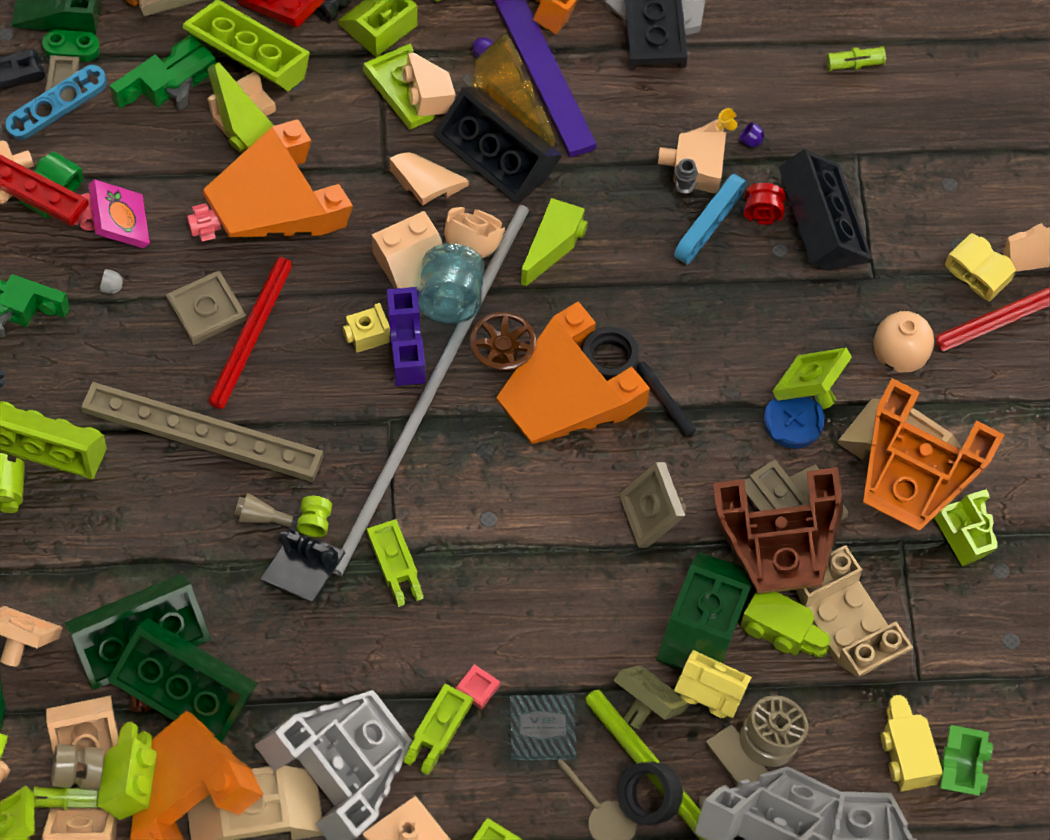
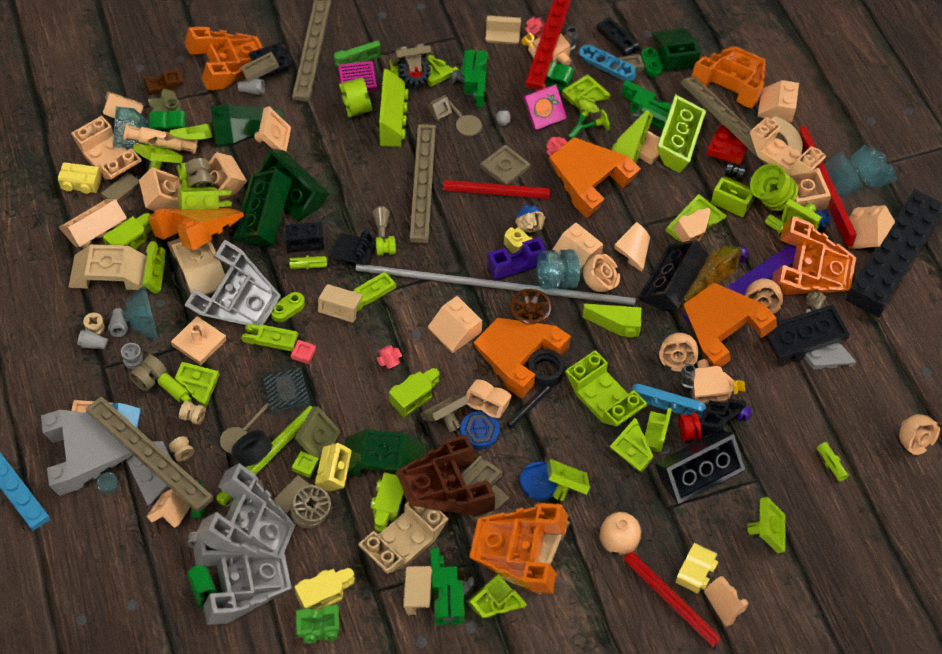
camera: 75 degrees right, 5 degrees down
(55, 365) = (440, 107): none -> dark tan tile
(96, 339) = (468, 124): none -> dark tan piece
(99, 151) = (585, 87): none -> lime wing
(163, 147) = (586, 106): none -> lime plant
(258, 632) = (304, 237): none -> black brick
(308, 639) = (308, 262): none -> lime axle
(336, 297) = (530, 219): none -> tan piece
(385, 687) = (288, 307): none -> lime plate
(406, 608) = (339, 303): none -> tan panel
(498, 455) = (455, 324): none -> light nougat slope
(531, 561) = (389, 356): none -> coral gear
(574, 43) = (766, 292): none -> light nougat cylinder
(598, 104) = (718, 314): none -> orange wedge
(604, 543) = (414, 391): none -> lime hinge
(636, 175) = (678, 351): none -> light nougat cylinder
(646, 443) = (488, 399): none -> light nougat brick
(682, 292) = (601, 392): none -> lime slope
(690, 726) = (305, 464): none -> lime plate
(692, 472) = (480, 429): none -> tile
(754, 158) = (719, 414): none -> black slope
(754, 245) = (657, 430): none -> lime panel
(775, 283) = (633, 447): none -> lime wing
(941, 163) = (771, 525): none -> lime tile
(941, 617) = (417, 588): none -> tan panel
(943, 579) = (451, 591): none -> green plate

